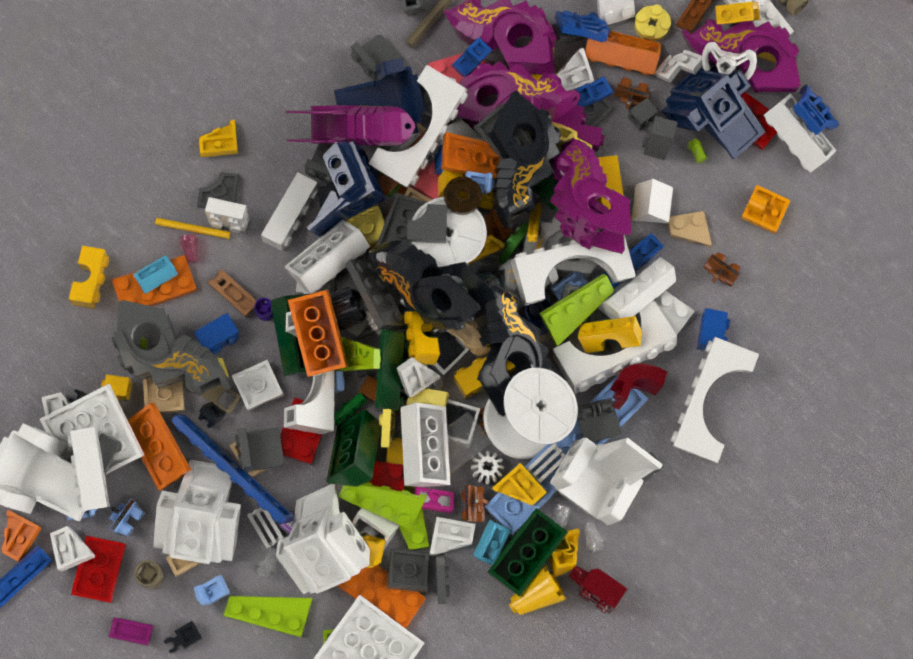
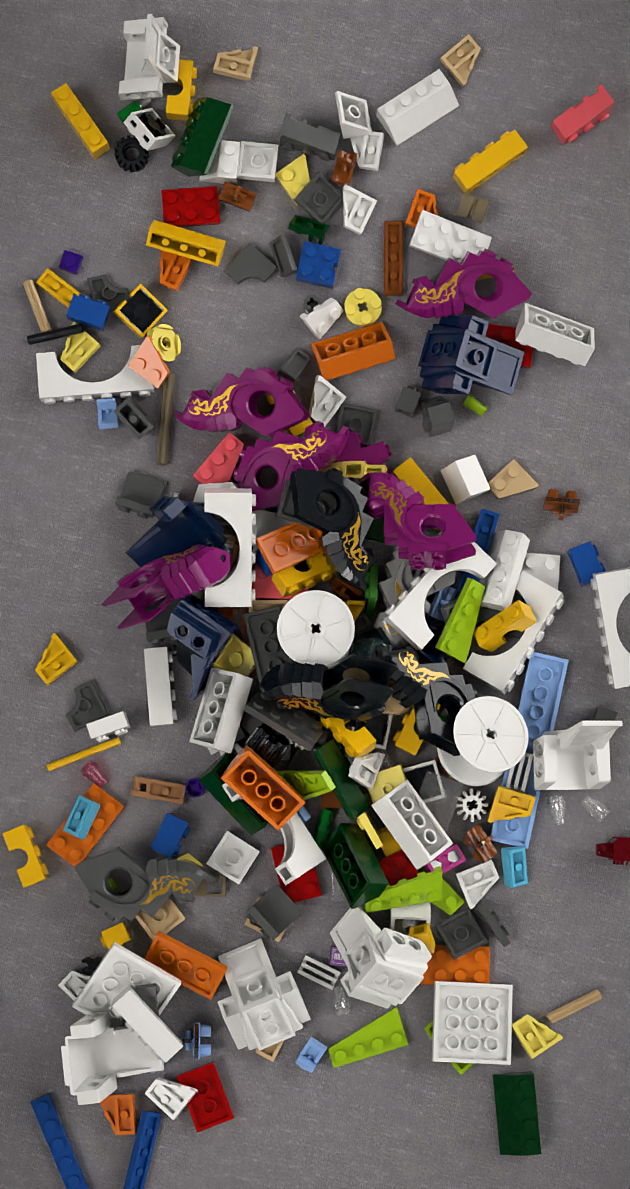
camera: 30 degrees left, 10 degrees up
(131, 631) = (266, 1129): magenta tile -> none
(149, 574) = (251, 1075): dark tan wheel -> none
(186, 636) = (314, 1104): black plate -> none
(212, 413) = (211, 906): black tile -> none
(236, 472) = (254, 942): blue plate -> none
(429, 227) = (298, 634): dark grey tile -> none
(459, 206) = (307, 600): dark brown tile -> none
(472, 57) = (229, 448): blue slope -> none
(485, 181) = (313, 566): light blue bracket -> none
(527, 552) = (551, 858): dark green slope -> none
(534, 222) = (380, 569): yellow axle -> none
(540, 593) = (579, 884): yellow cone -> none
(565, 555) = (577, 837): yellow slope -> none
(583, 25) = (305, 355): blue plate -> none
(594, 92) = (351, 409): blue slope -> none
(598, 420) = (539, 706): dark grey hinge -> none
(631, 95) = (377, 388): dark orange hips -> none
(637, 376) = (552, 644): dark red arch -> none
(671, 66) = (408, 333): white plate -> none
(727, 60) = (456, 312): white piece -> none
(737, 12) = (436, 258): yellow panel -> none
(765, 209) = (565, 423): light orange plate -> none
(809, 113) = (554, 314): blue plate -> none

